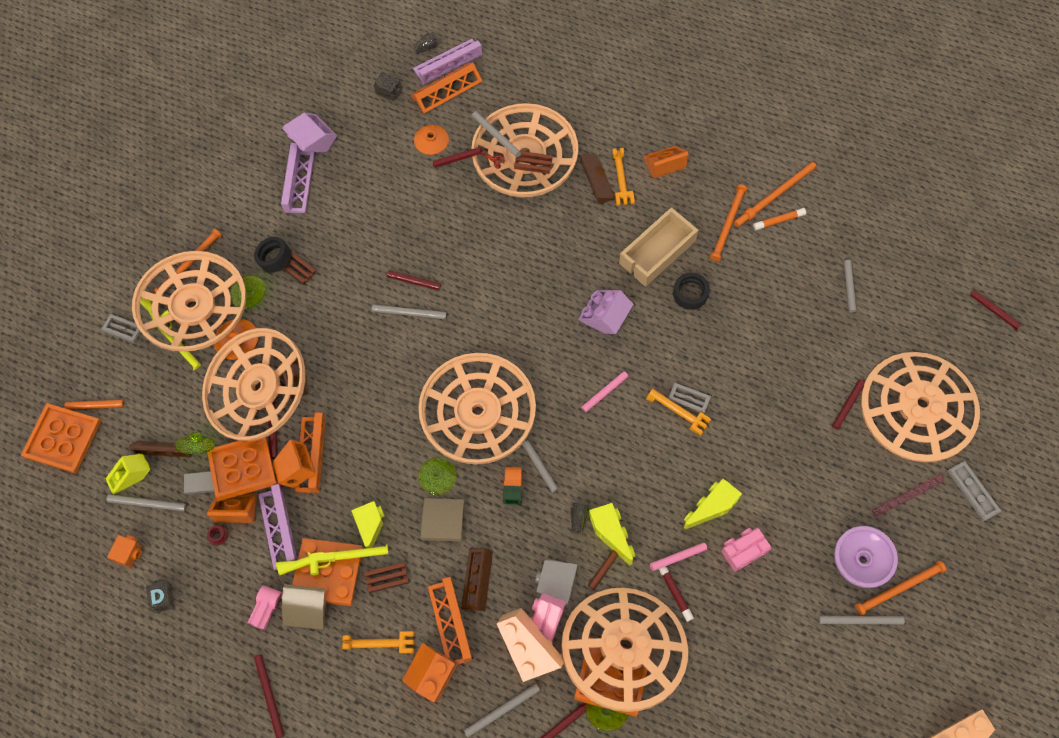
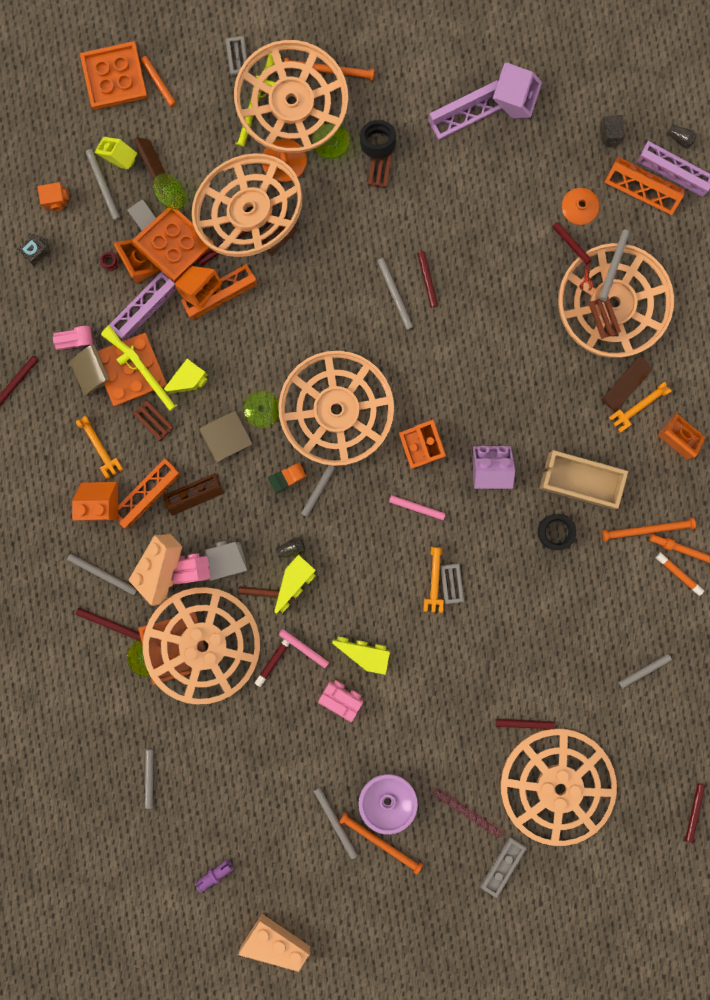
camera: 60 degrees right, 20 degrees up
(552, 354) = (422, 444): none -> orange brick

